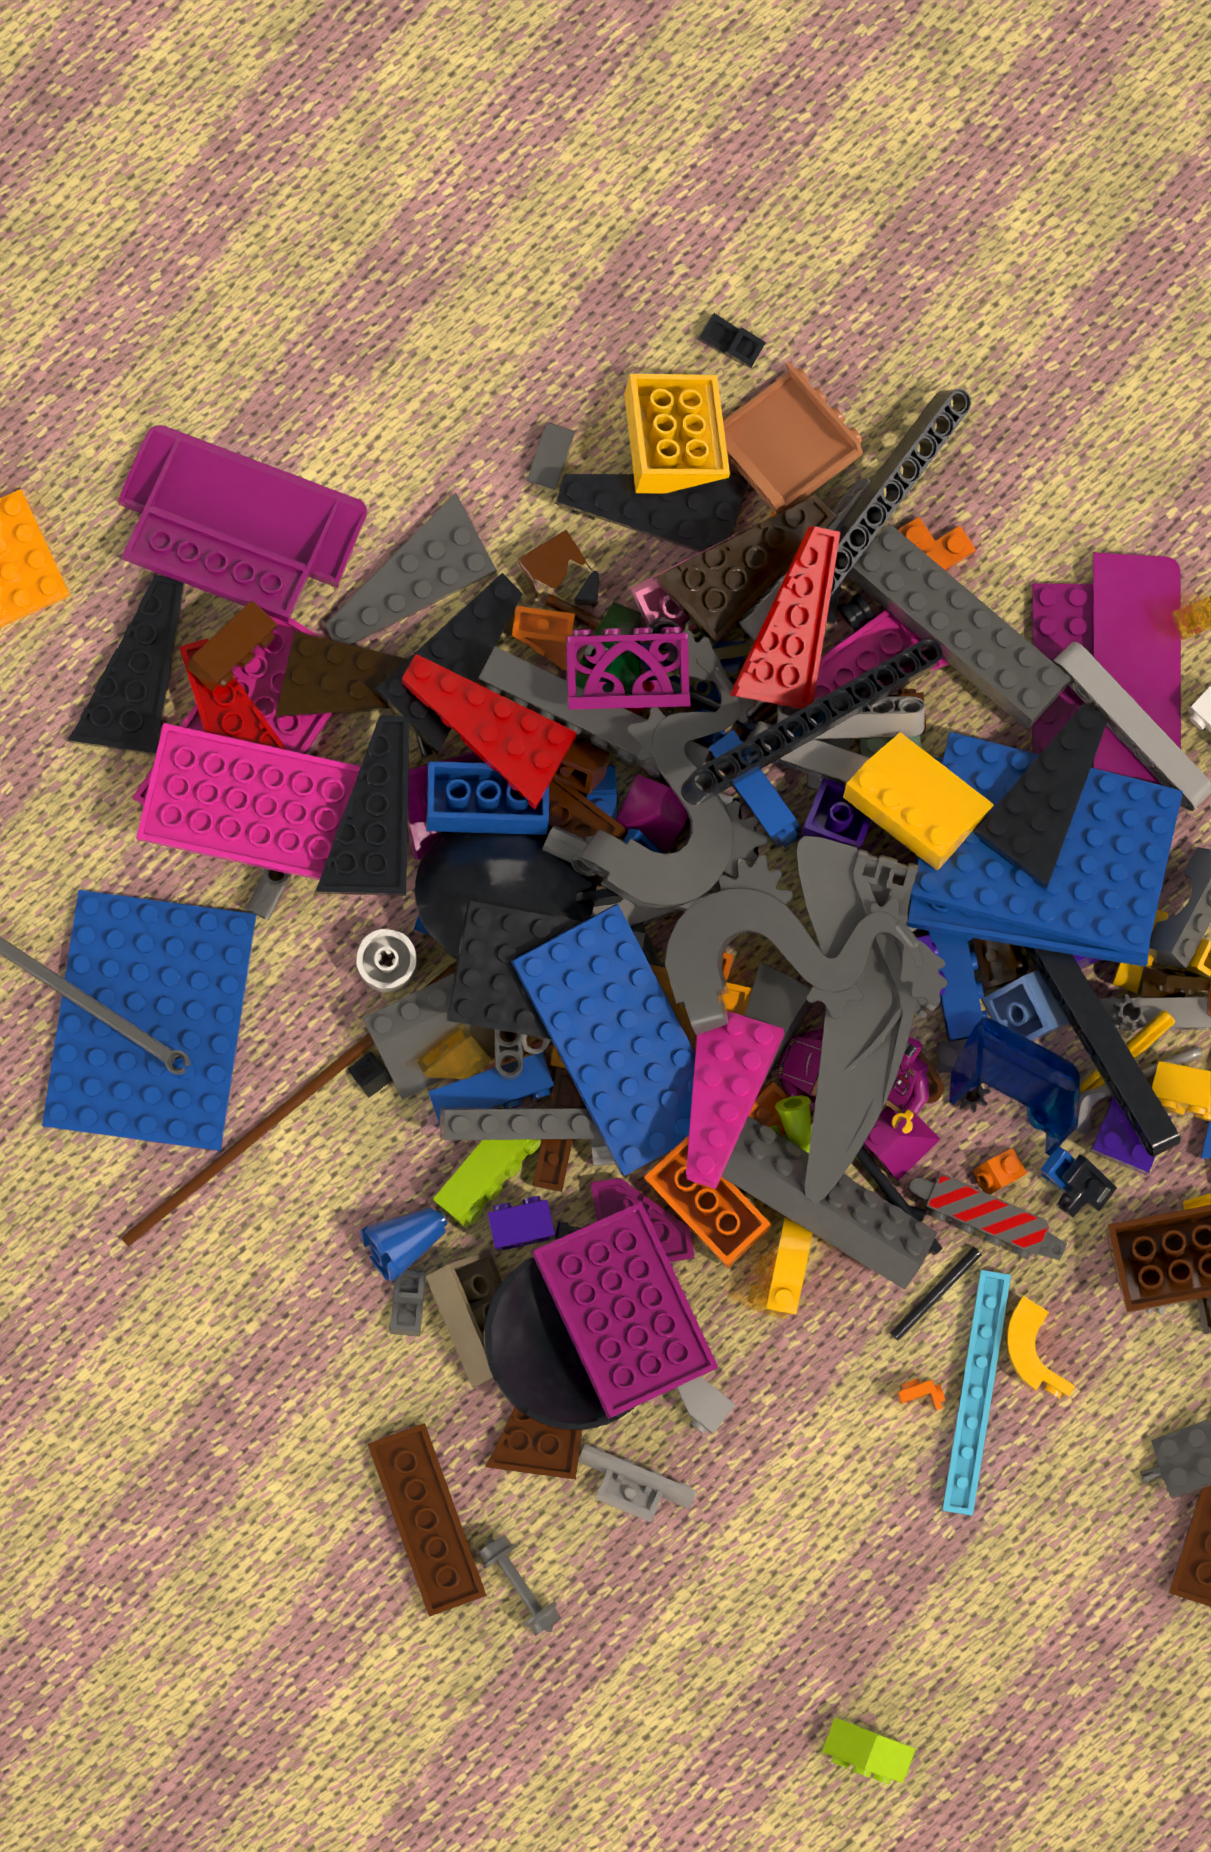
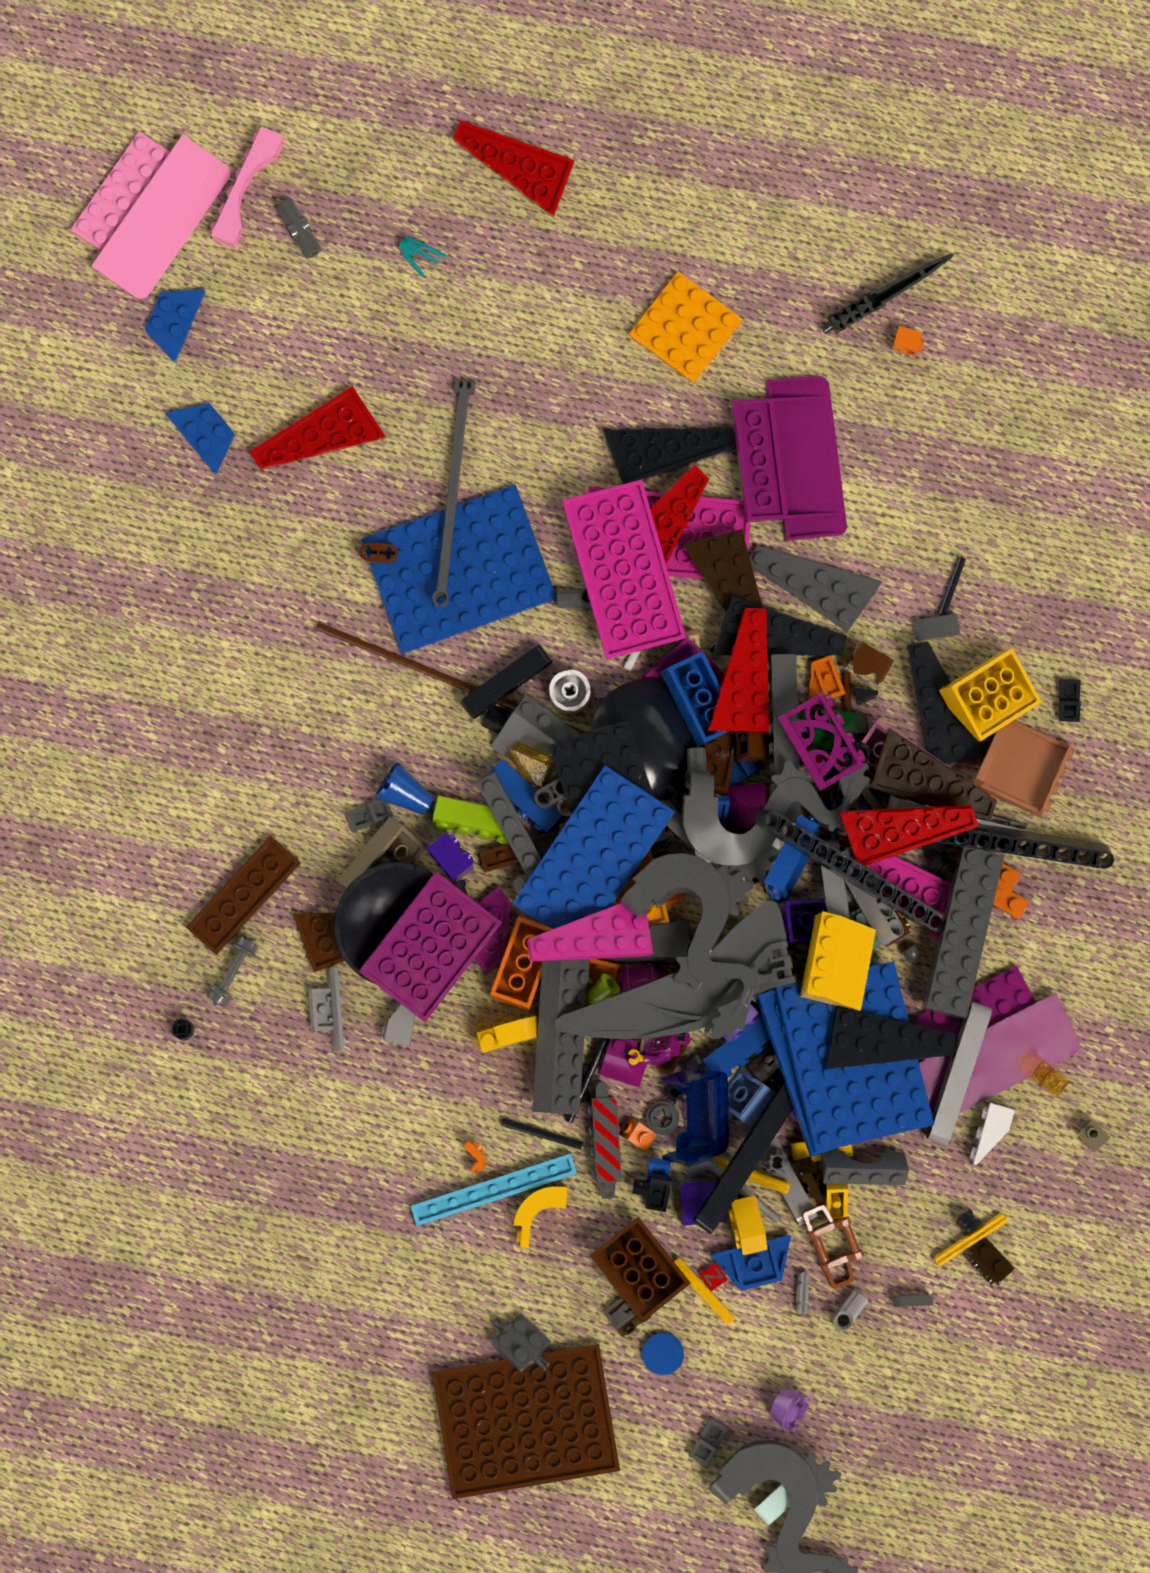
camera: 60 degrees right, 0 degrees up
(68, 1107) = (377, 558): none -> reddish brown beam
(89, 306) = (877, 298): none -> pearl dark grey piece
(164, 297) = (908, 341): none -> orange brick
(233, 647) = (711, 496): reddish brown brick -> none
(330, 1035) = (506, 681): none -> black beam
(372, 834) = (641, 640): black wing -> none
(508, 409) = (952, 586): none -> black bar
(564, 1686) = (186, 1029): none -> black wheel
(868, 1752) = (239, 1235): lime brick -> none
(948, 705) = (912, 953): none -> dark grey hinge
(1009, 1126) = (669, 1110): none -> dark grey gear

